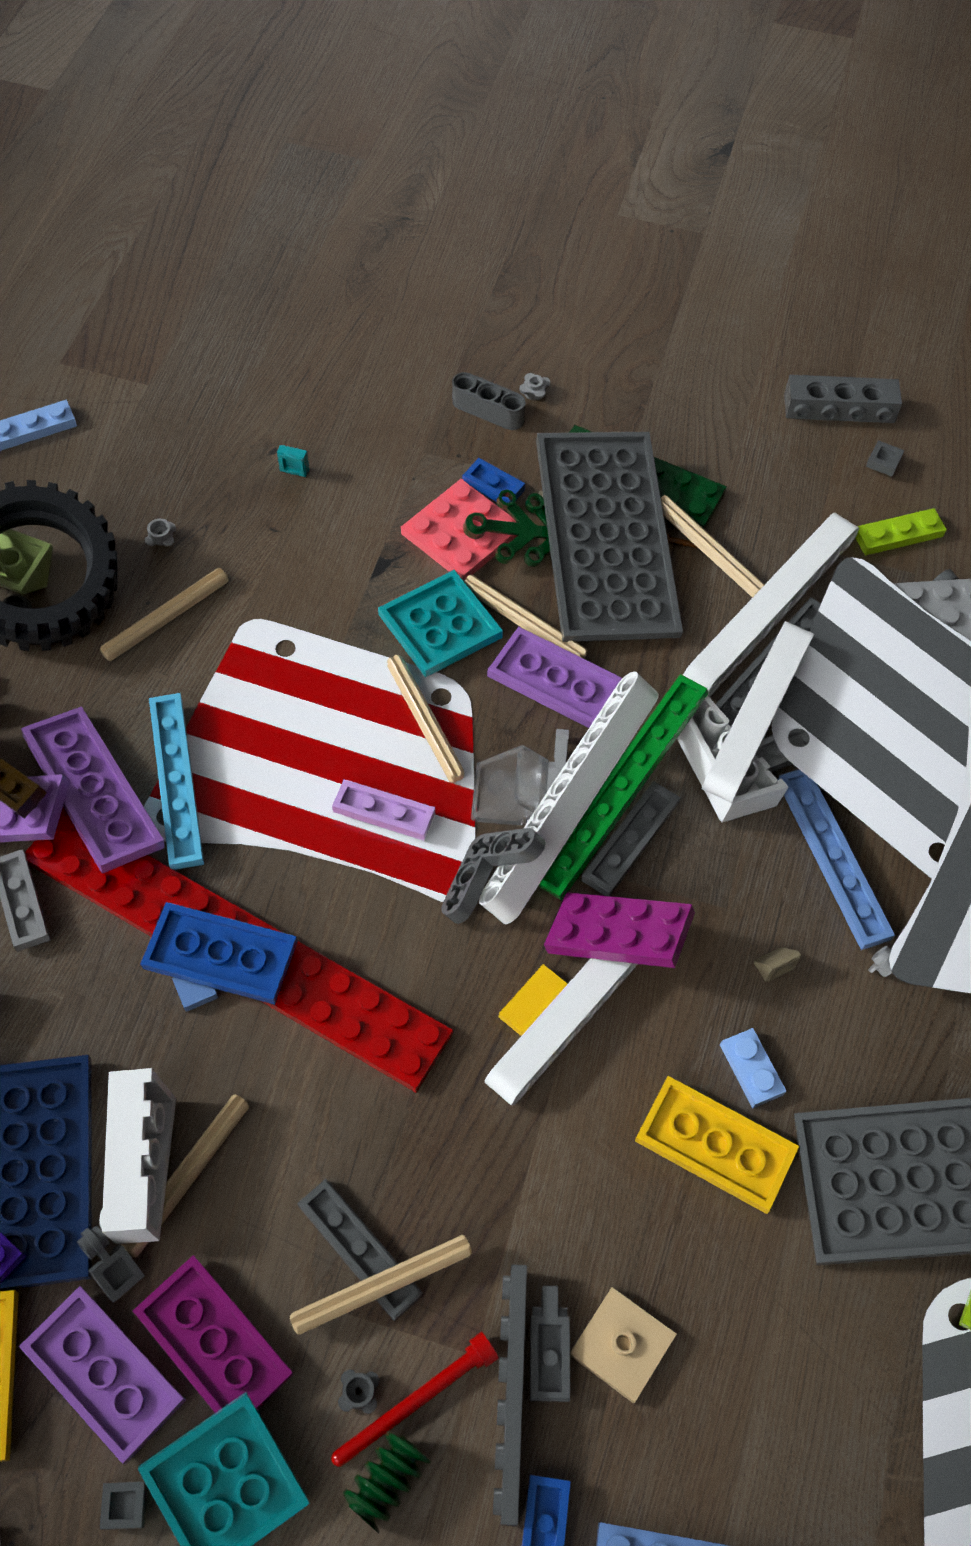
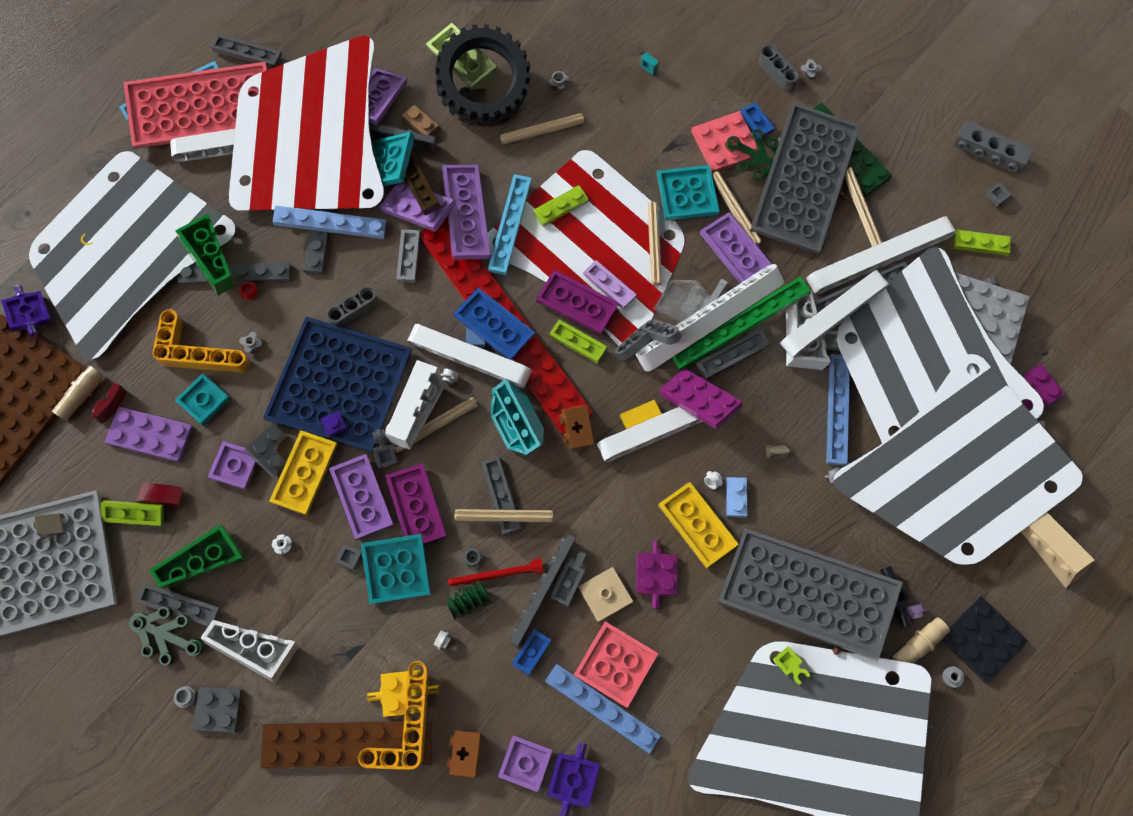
camera: 25 degrees right, 10 degrees up
(177, 1075) = (449, 376): none -> white plate
(198, 1024) = (469, 355): none -> white beam
(246, 719) = (560, 206): none -> lime plate
(327, 1100) = (516, 418): none -> teal wedge
(343, 859) = (577, 302): none -> magenta plate
(373, 922) = (578, 341): none -> lime plate
(455, 1073) = (584, 433): none -> dark orange brick
(691, 1265) = (656, 574): none -> magenta plate
(702, 1055) = (713, 480): none -> white plate
(704, 1470) = (615, 664): none -> coral plate

